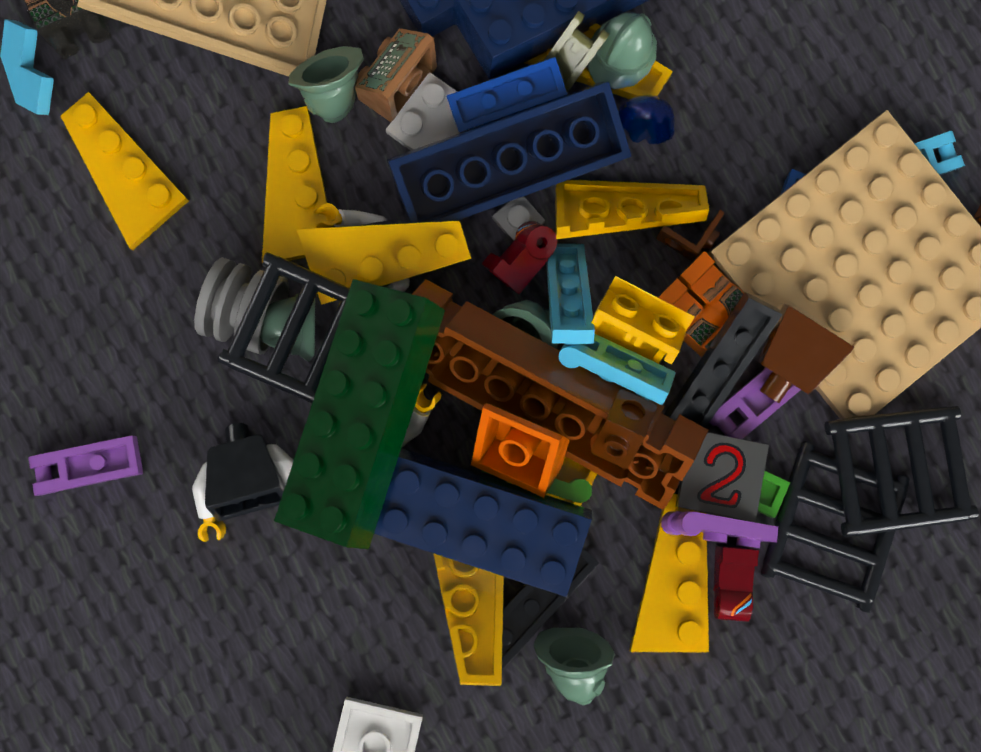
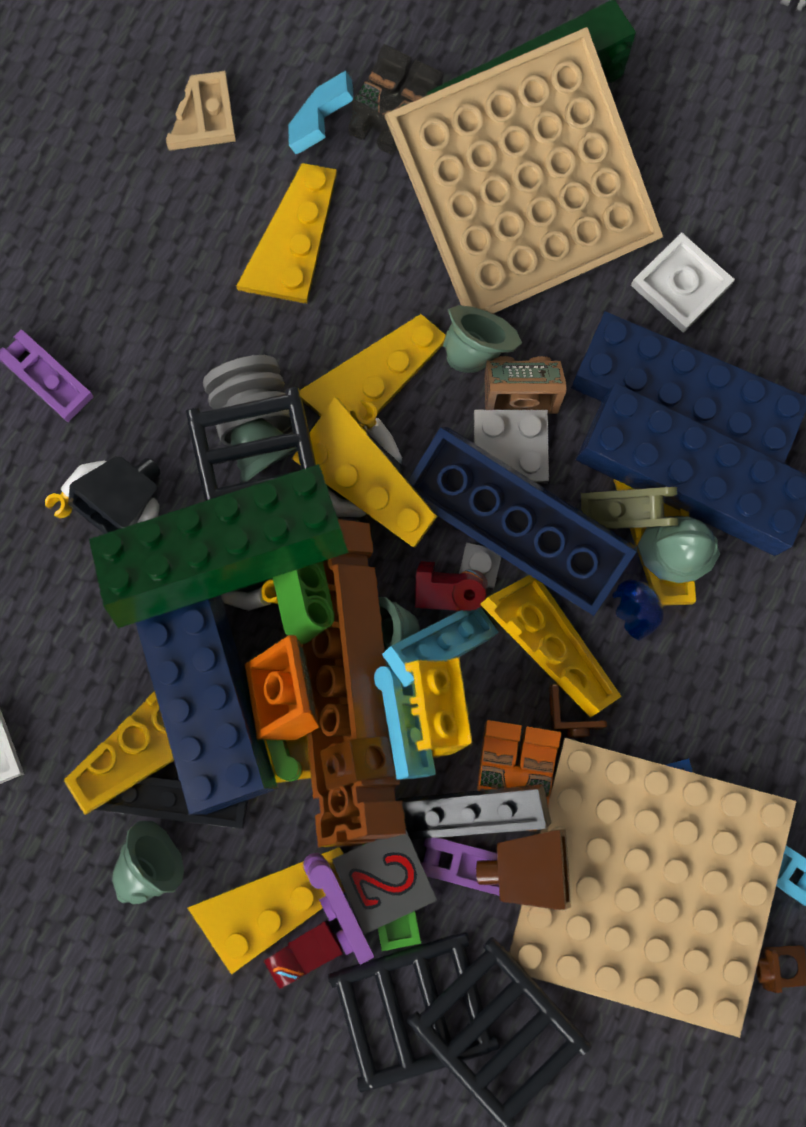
camera: 55 degrees right, 5 degrees down
(458, 378) = (304, 602): none -> bright green beam
(507, 94) = (569, 481): blue plate -> none

